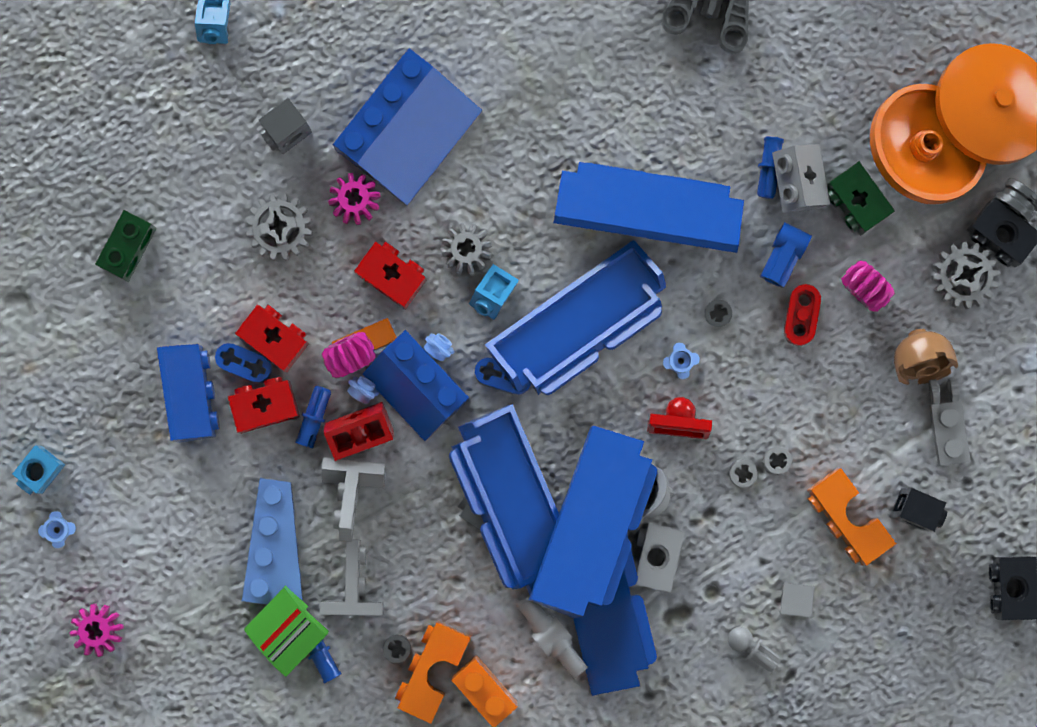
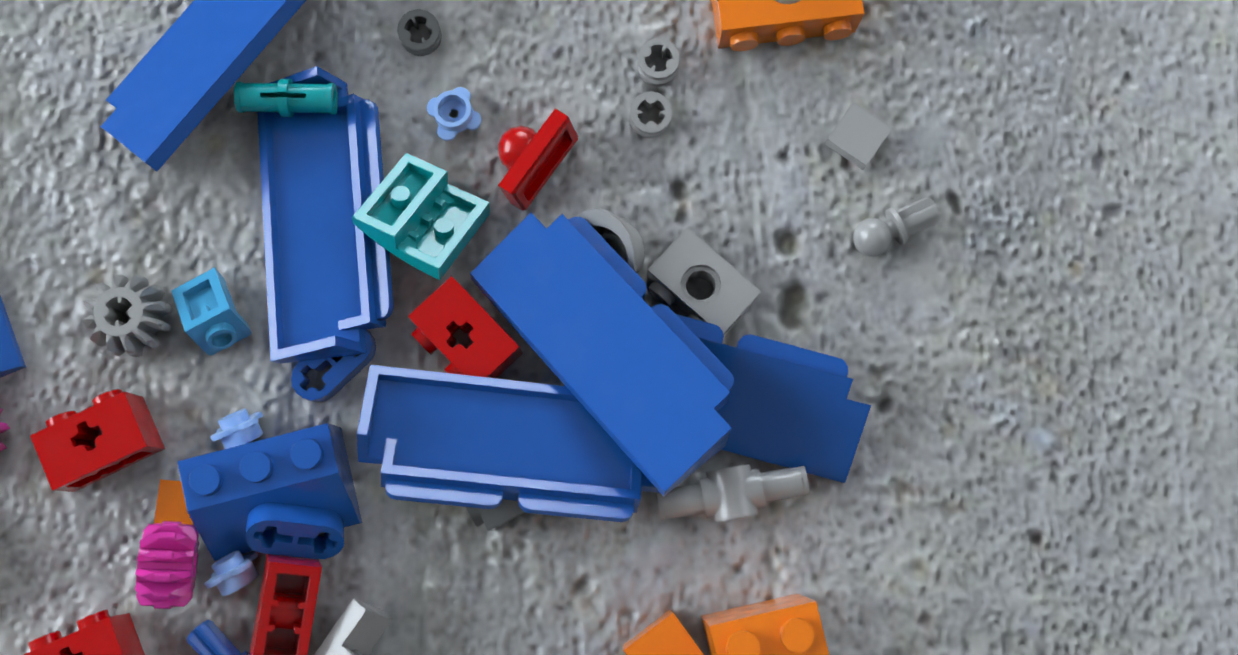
camera: 60 degrees left, 5 degrees down
(402, 411) = (294, 531): none -> blue beam
(570, 427) = (455, 309): none -> red brick
(611, 379) = (421, 216): none -> teal slope
(646, 283) = (286, 97): none -> teal pin

